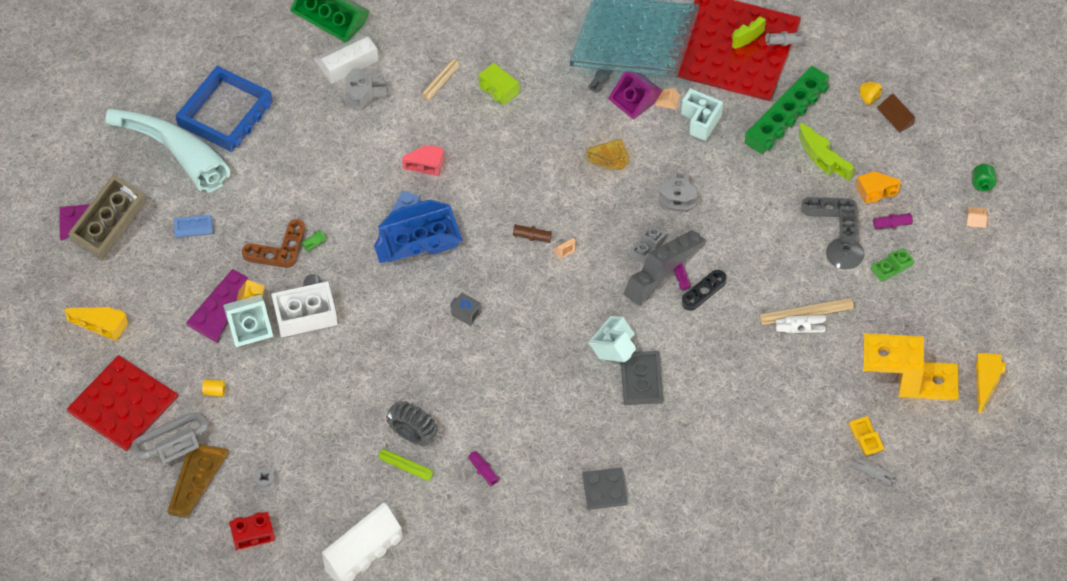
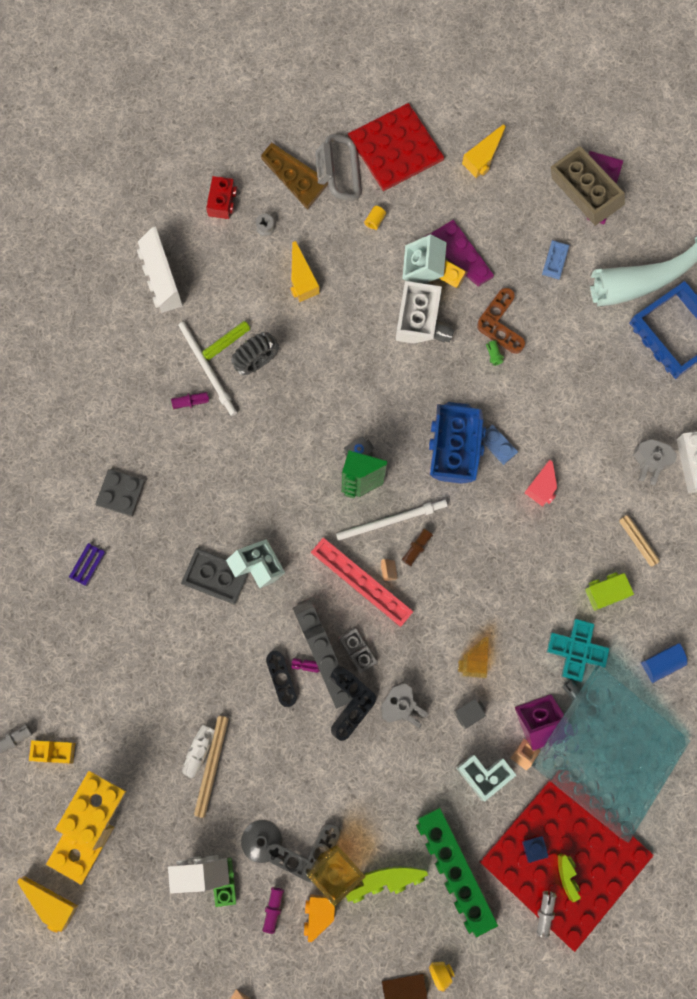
camera: 110 degrees right, 20 degrees up
(308, 424) = (303, 282): none -> yellow slope
(465, 441) = (224, 397): none -> white bar
(493, 240) = (426, 509): none -> white bar
(495, 280) = (362, 474): none -> green slope
(538, 30) = (665, 663): none -> blue brick
(561, 90) = (577, 650): none -> teal plate
(585, 263) = (362, 582): none -> coral plate
(656, 143) = (470, 713): none -> dark grey brick
(685, 223) = (357, 698): none -> black beam
(696, 481) = (80, 561): none -> dark purple tile
(739, 62) = (535, 849): none -> dark blue plate
(838, 180) = (335, 874): none -> clear yellow slope
(897, 272) = (198, 874): none -> white brick

